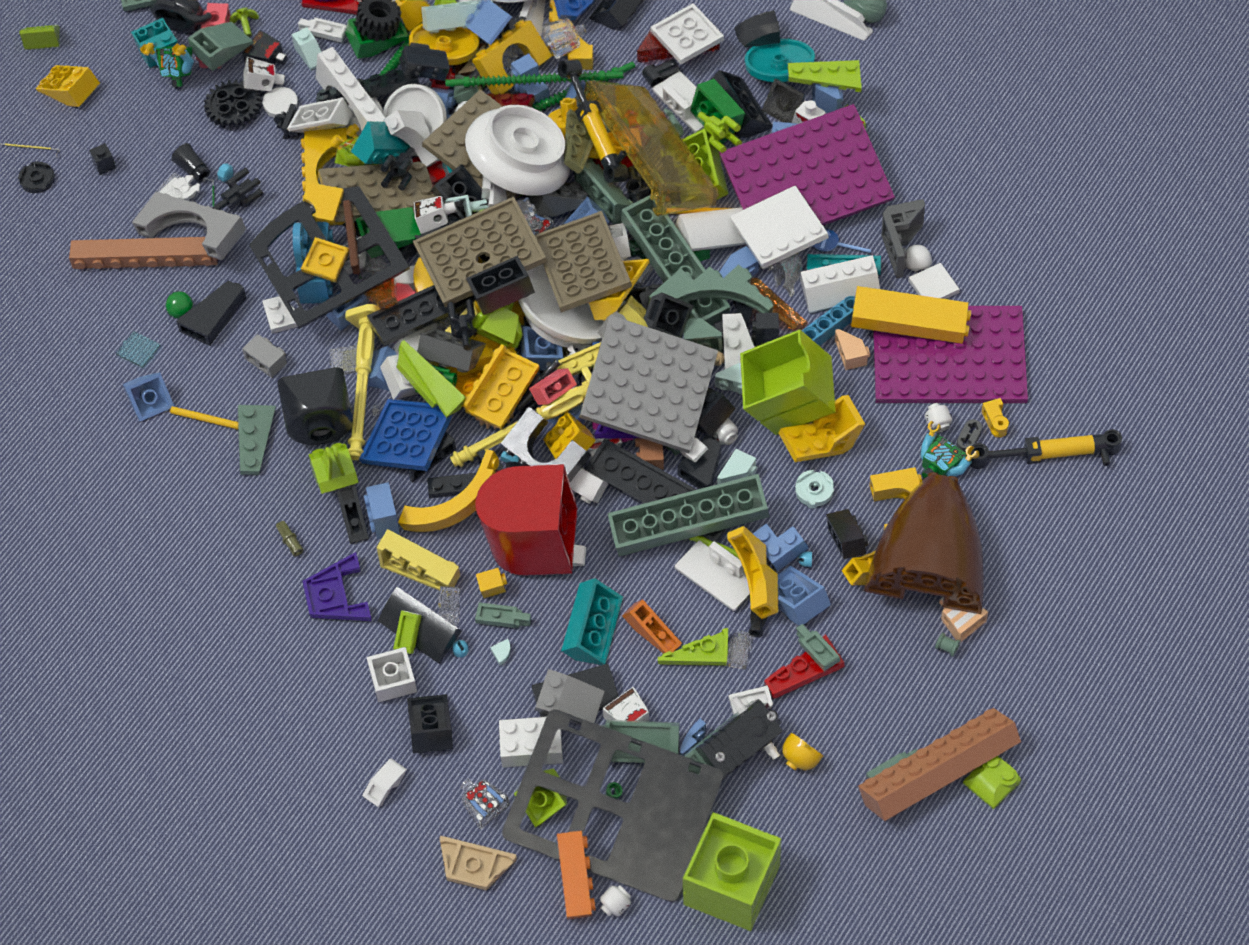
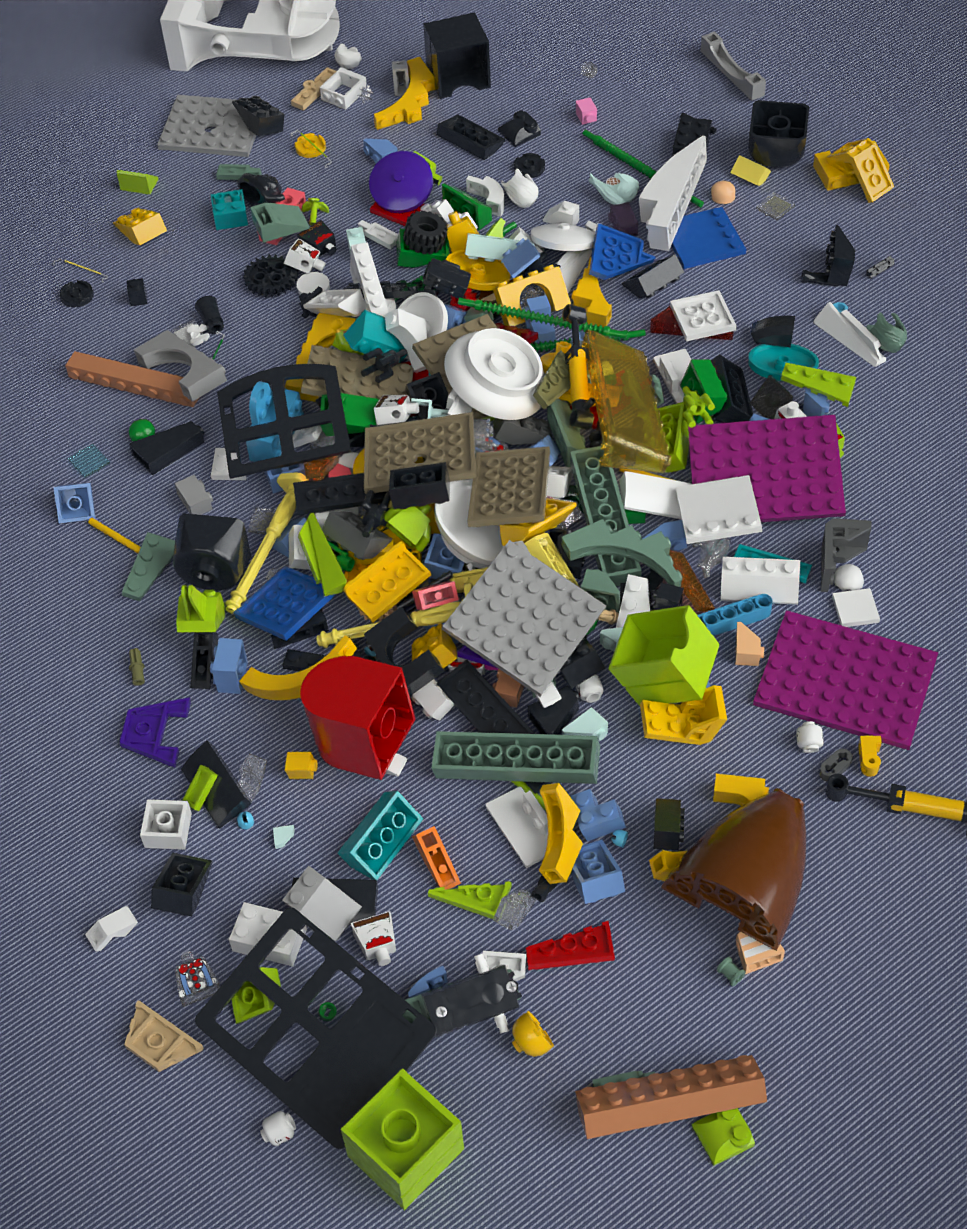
camera: 20 degrees right, 5 degrees down
(171, 60) = (233, 225): torso -> none
(225, 172) = (236, 330): medium azure tile -> none
(237, 193) = (237, 350): black plant -> none
(325, 201) = (298, 370): yellow tile -> none
(325, 259) = (277, 422): yellow tile -> none
(351, 236) = (307, 408): reddish brown tile -> none
(416, 562) = (238, 723): light yellow wedge -> none
(501, 616) = (297, 800): sand green hinge -> none
(562, 36) = (586, 289): clear torso -> none
(574, 875) = (246, 1086): orange brick -> none
(656, 74) = (665, 345): black piece -> none
(656, 733) = (389, 967): sand green panel -> none
(667, 314) = (570, 558): black slope -> none
(814, 498) = (654, 780): light aqua plate -> none
(817, 647) = (592, 931): sand green hinge -> none
(831, 243) = (768, 538): piece -> none
(910, 314) = (818, 628): yellow brick -> none
(942, 456) = (799, 777): torso -> none

